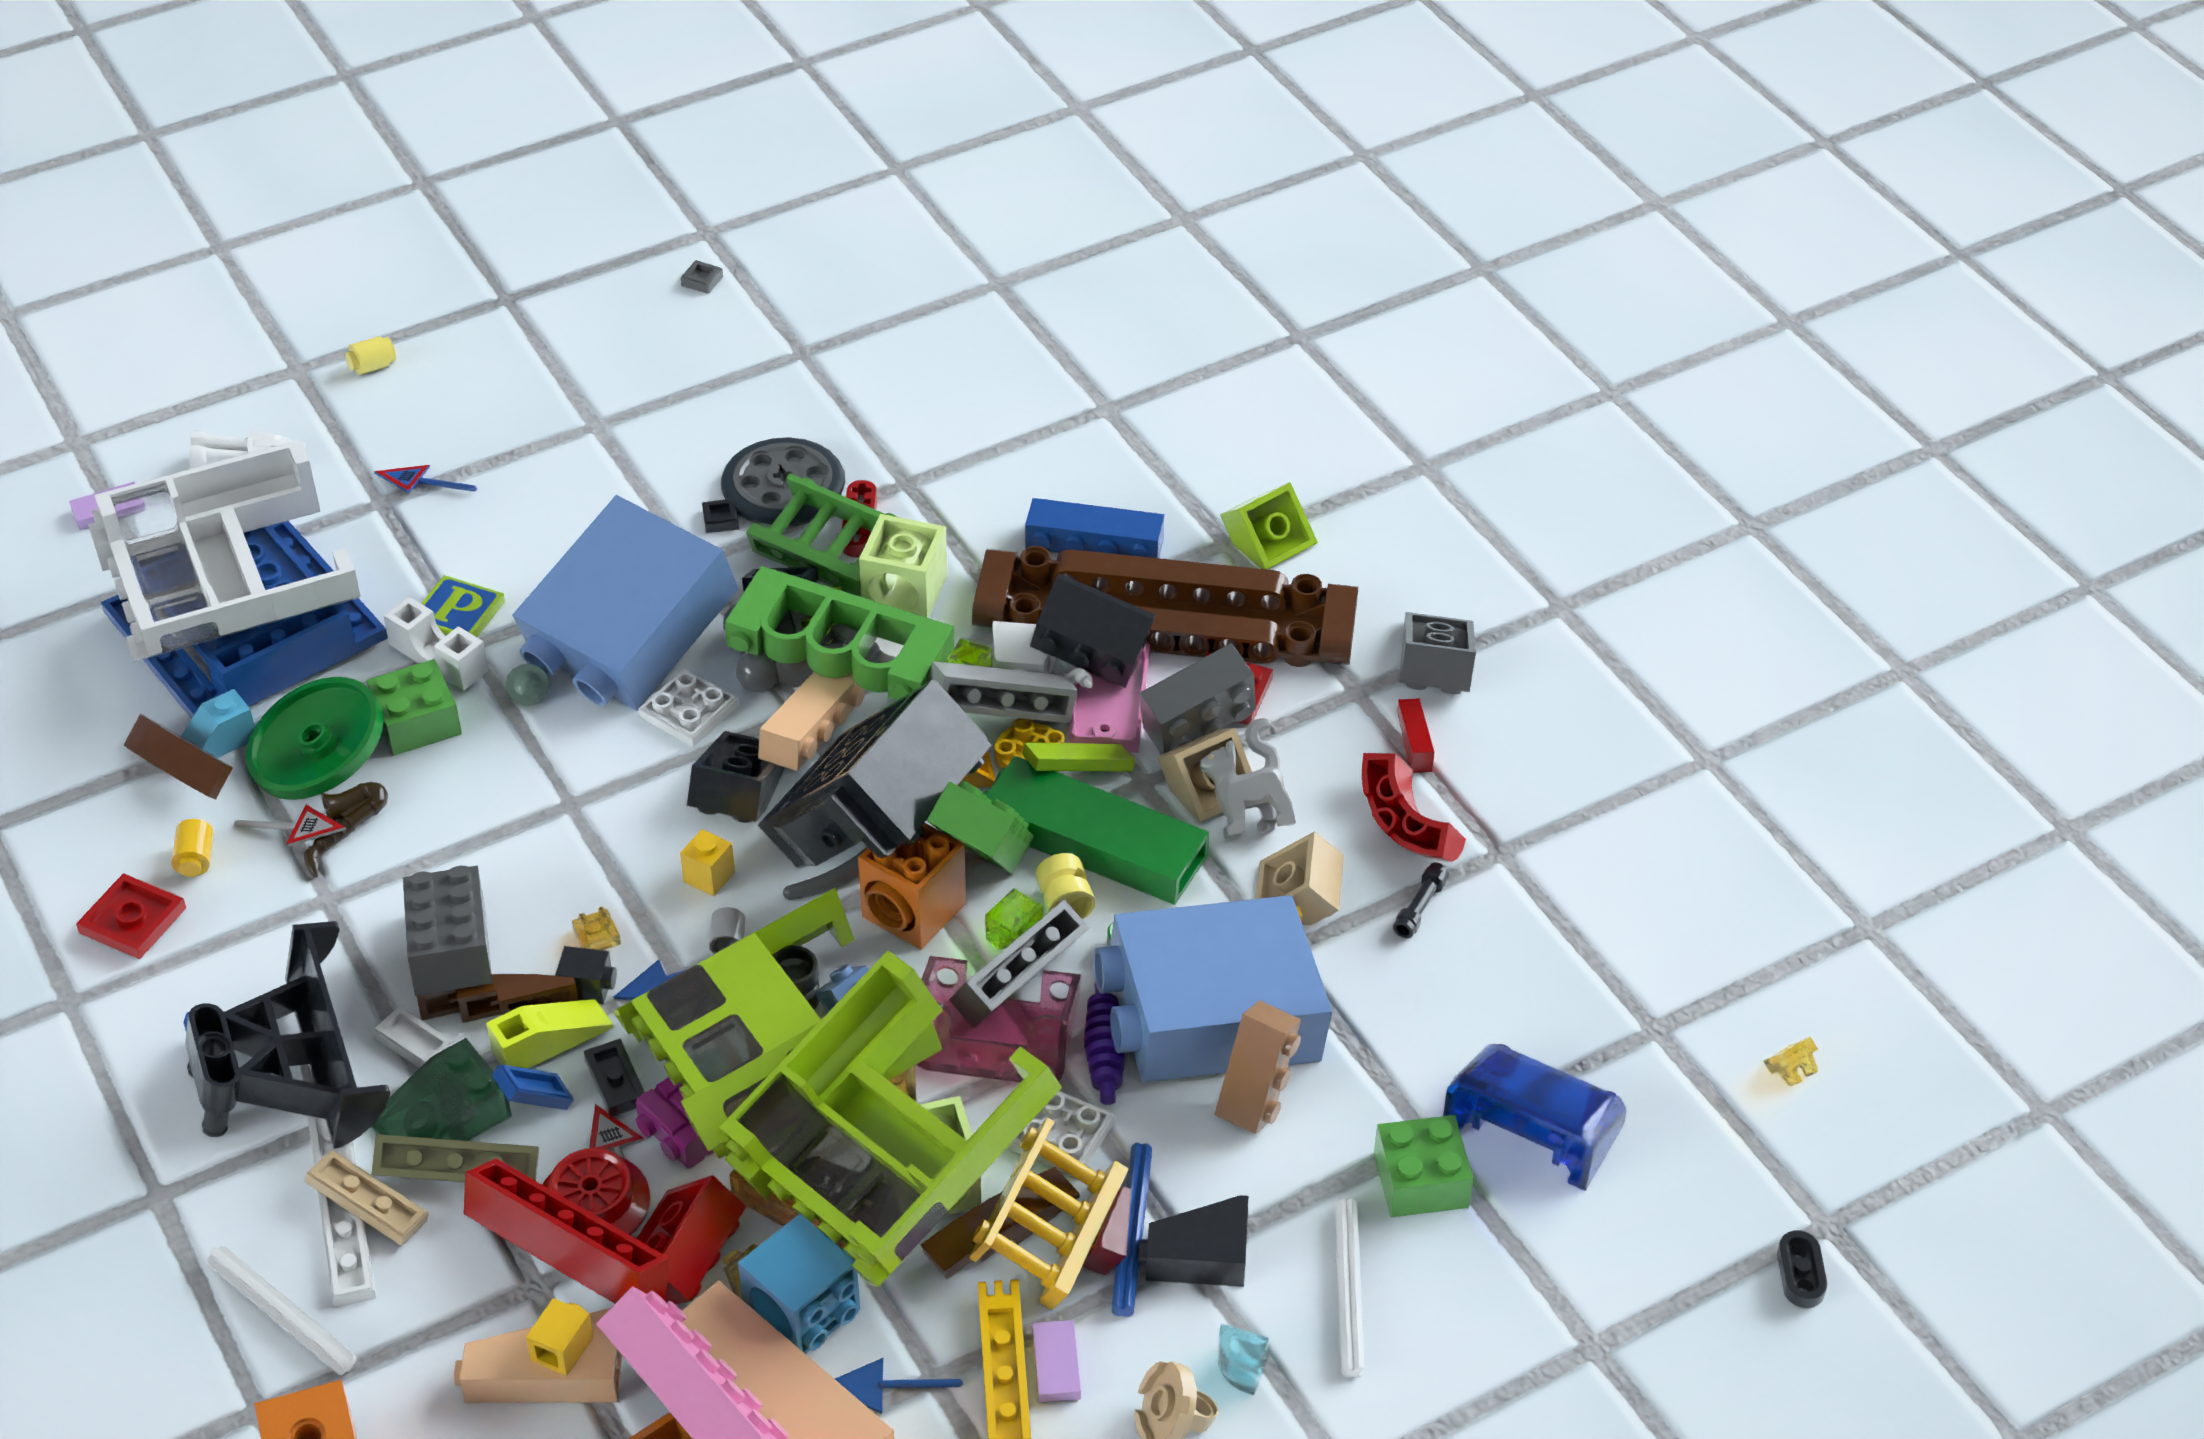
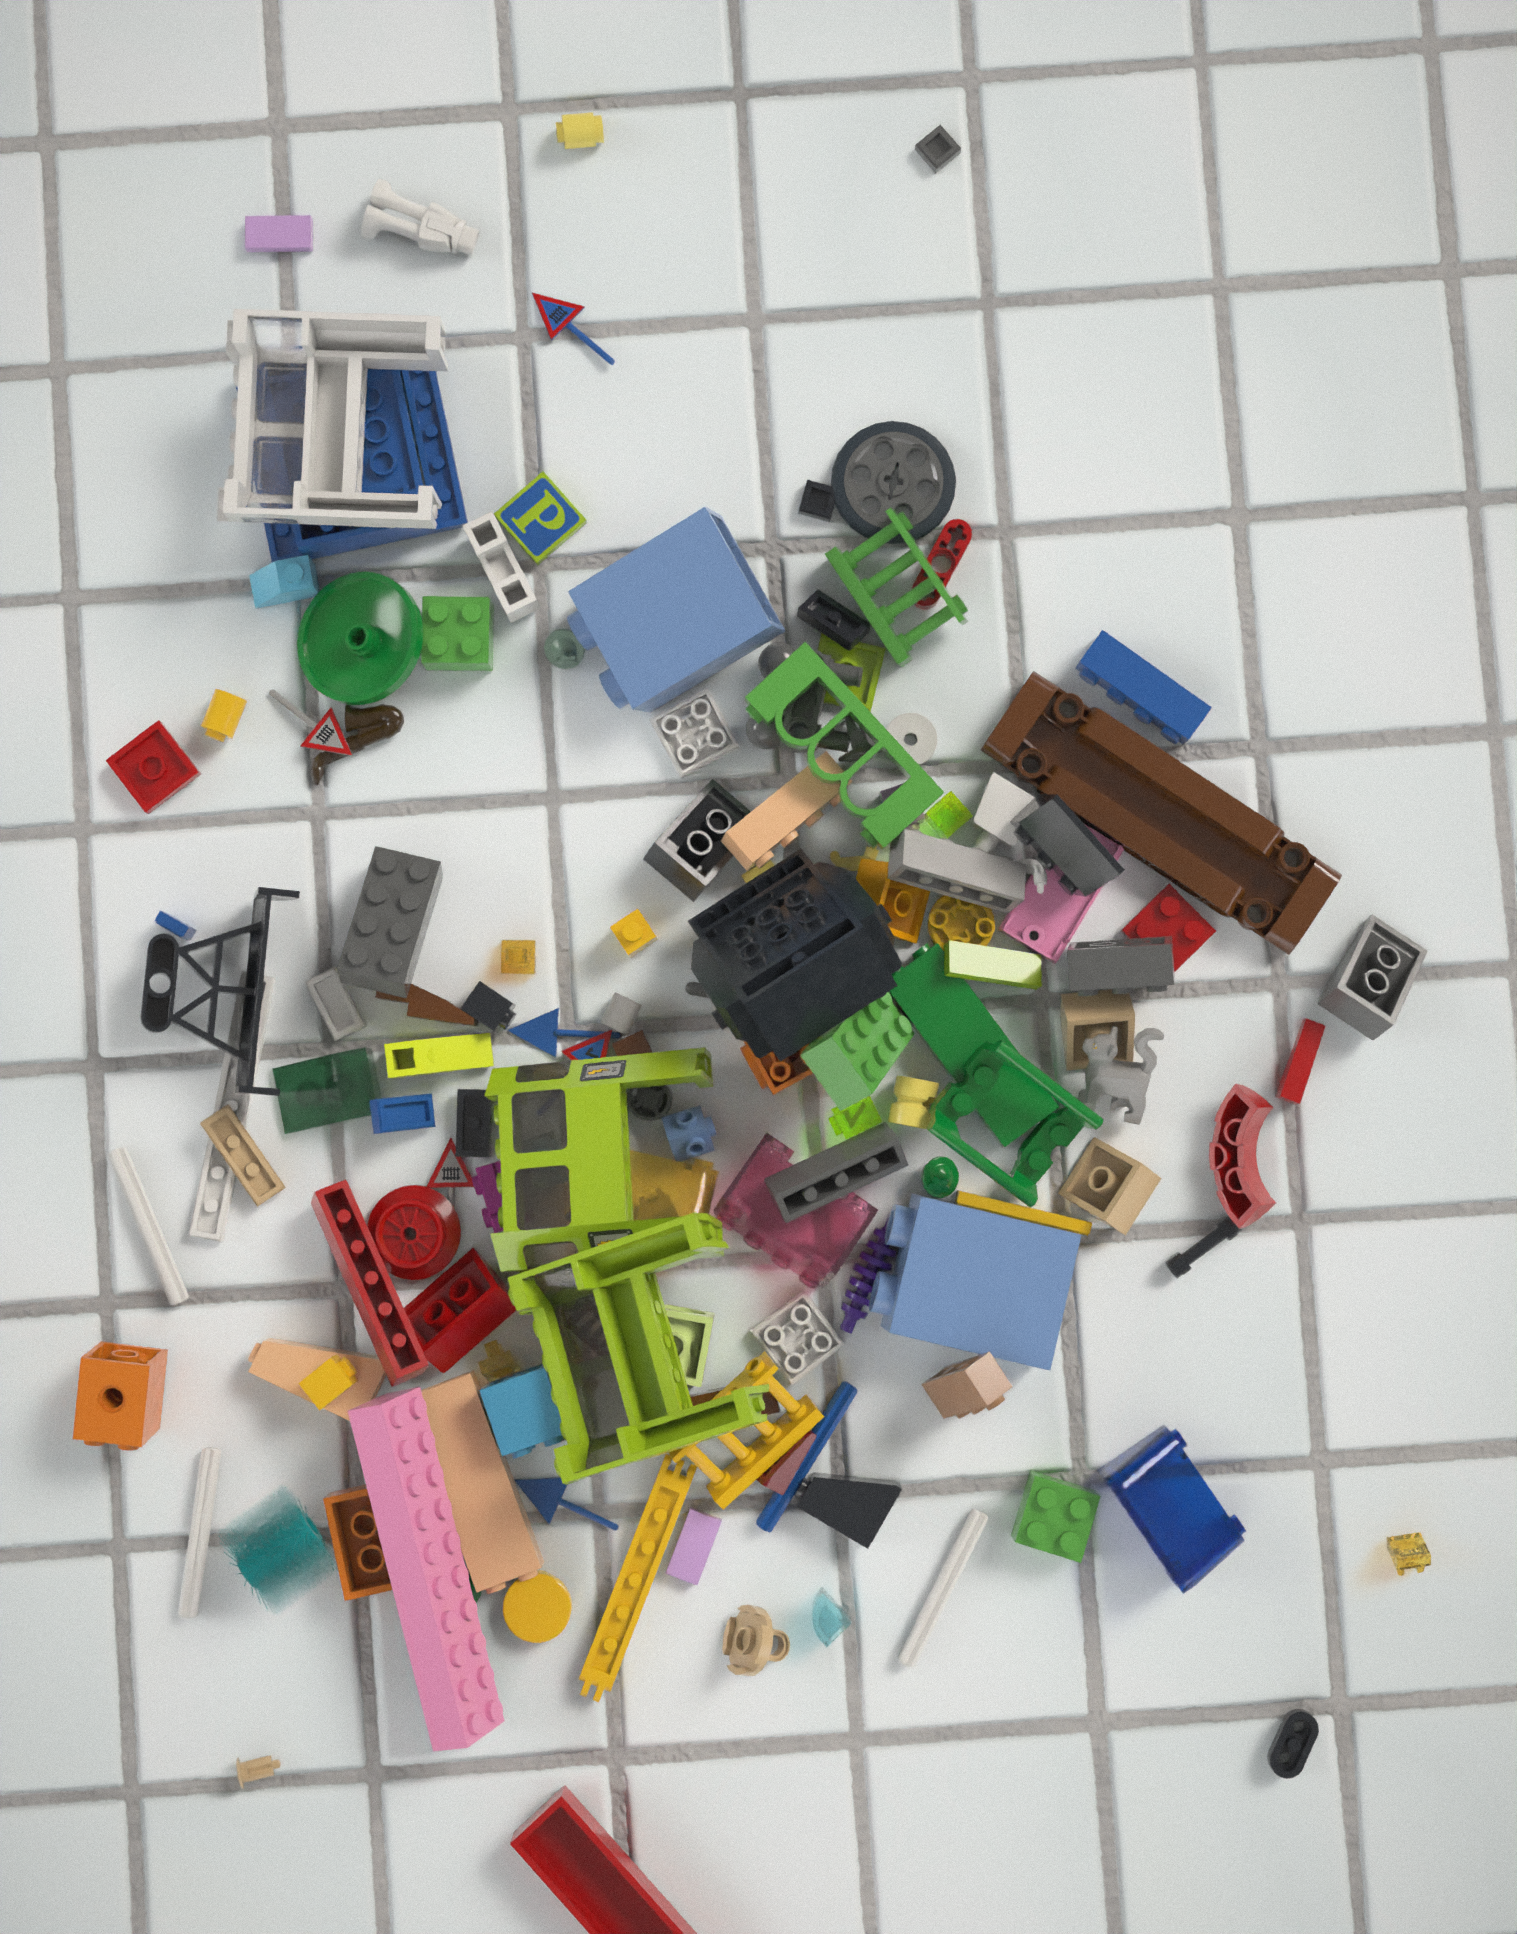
camera: 30 degrees right, 40 degrees up
(178, 756) = (238, 605): reddish brown slope -> none
(445, 1158) = (319, 1154): olive plate -> none
(904, 564) = (942, 671): yellowish green brick -> none
(1118, 824) = (1034, 1153): none -> green piece
(1269, 527) = (1303, 757): lime slope -> none

